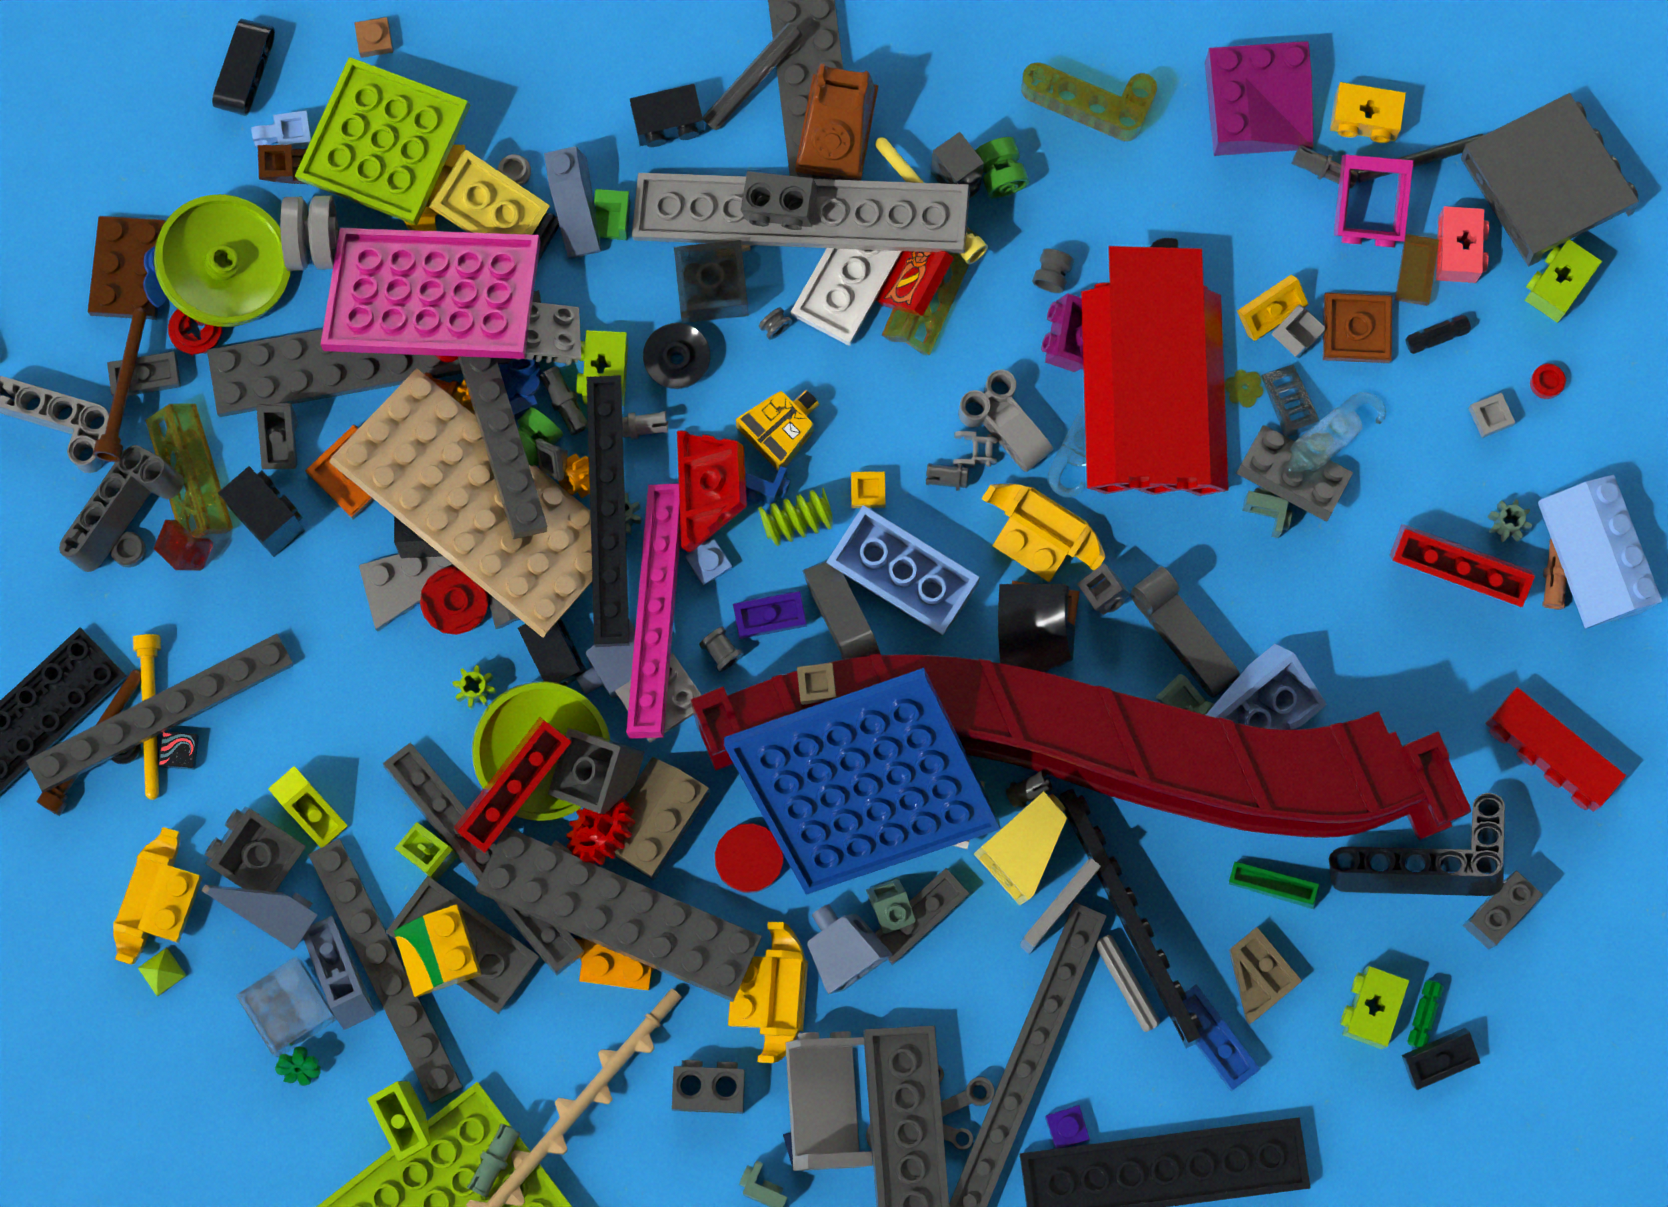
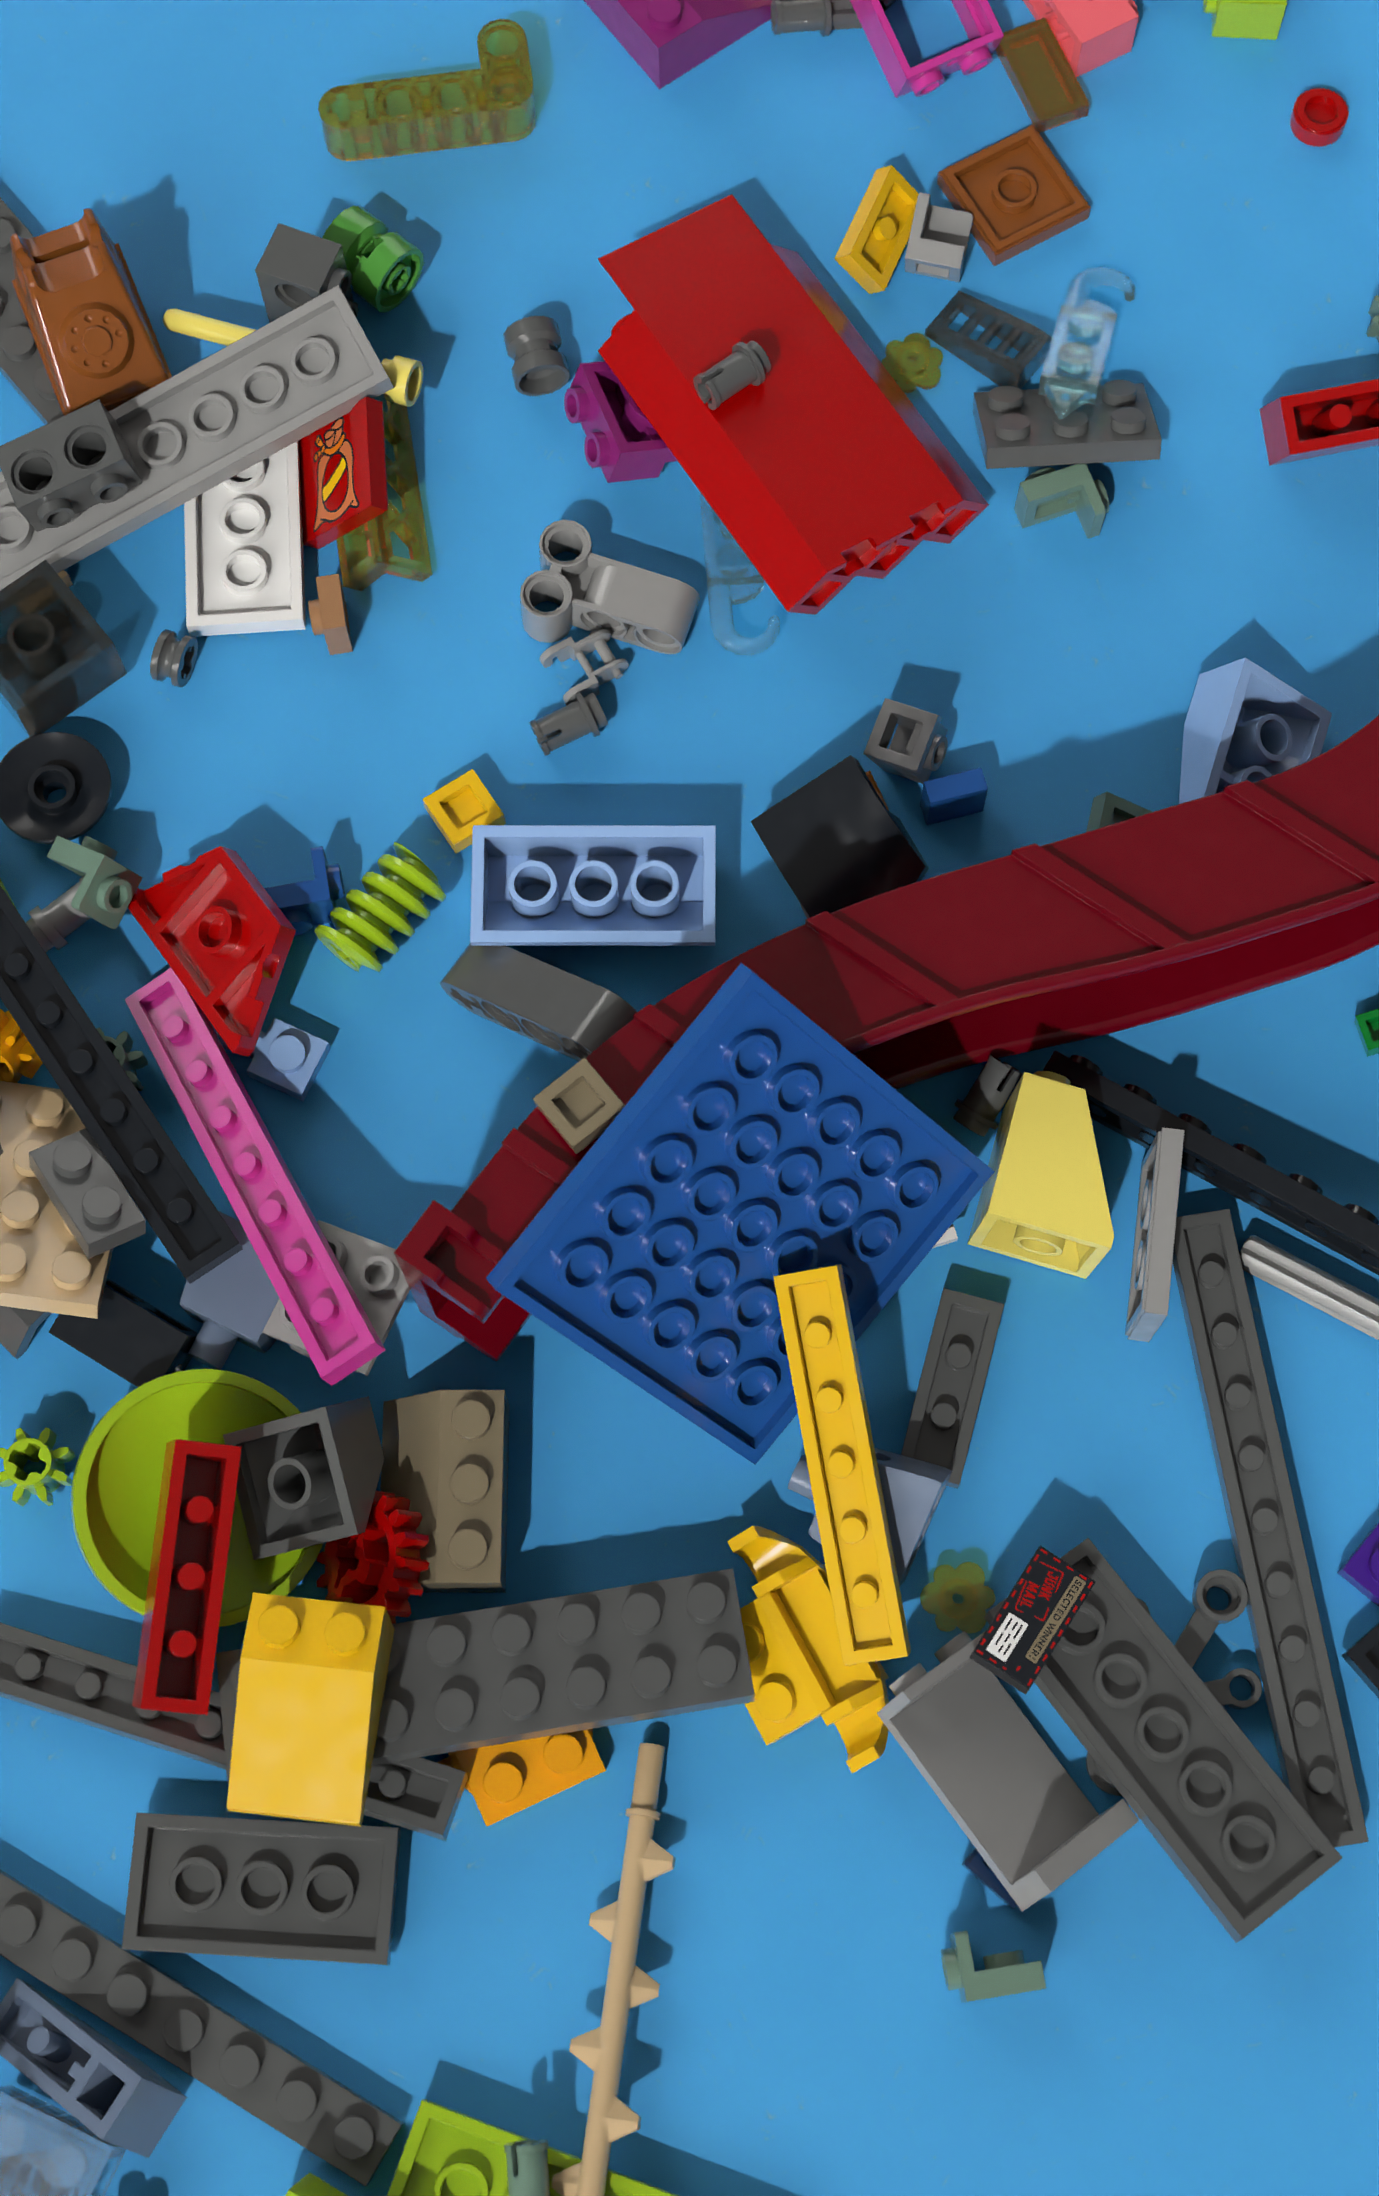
camera: 30 degrees left, 5 degrees down
(426, 851) = (113, 1775): lime slope -> none
(437, 951) = (225, 1925): yellow slope -> none
(531, 878) = (308, 1708): none -> yellow slope
(573, 575) = (87, 1193): none -> dark grey plate
(674, 422) = (105, 885): none -> sand green bracket
(707, 1098) = (809, 1880): dark grey brick -> none
(721, 649) = (389, 1173): dark grey bush -> none
(748, 858) = (632, 1463): red tile -> none
(769, 615) = (431, 1079): dark purple plate -> none
(779, 426) = (271, 799): yellow torso -> none
(839, 920) = (842, 1465): none -> yellow plate
(859, 1005) = (964, 1580): none -> clear yellow plant
(865, 347) = (330, 614): none -> medium nougat plate
(881, 1045) = (1032, 1620): none -> tile
(891, 905) = (903, 1395): sand green bracket -> none
(1042, 531) = (759, 719): yellow plate -> none
(1111, 630) = (953, 796): none -> blue tile
(1134, 351) = (741, 368): none -> dark grey pin
(1182, 631) = (1057, 735): dark grey beam -> none
(1438, 334) = (1129, 139): black axle -> none
(1491, 415) = (1278, 199): light grey plate -> none

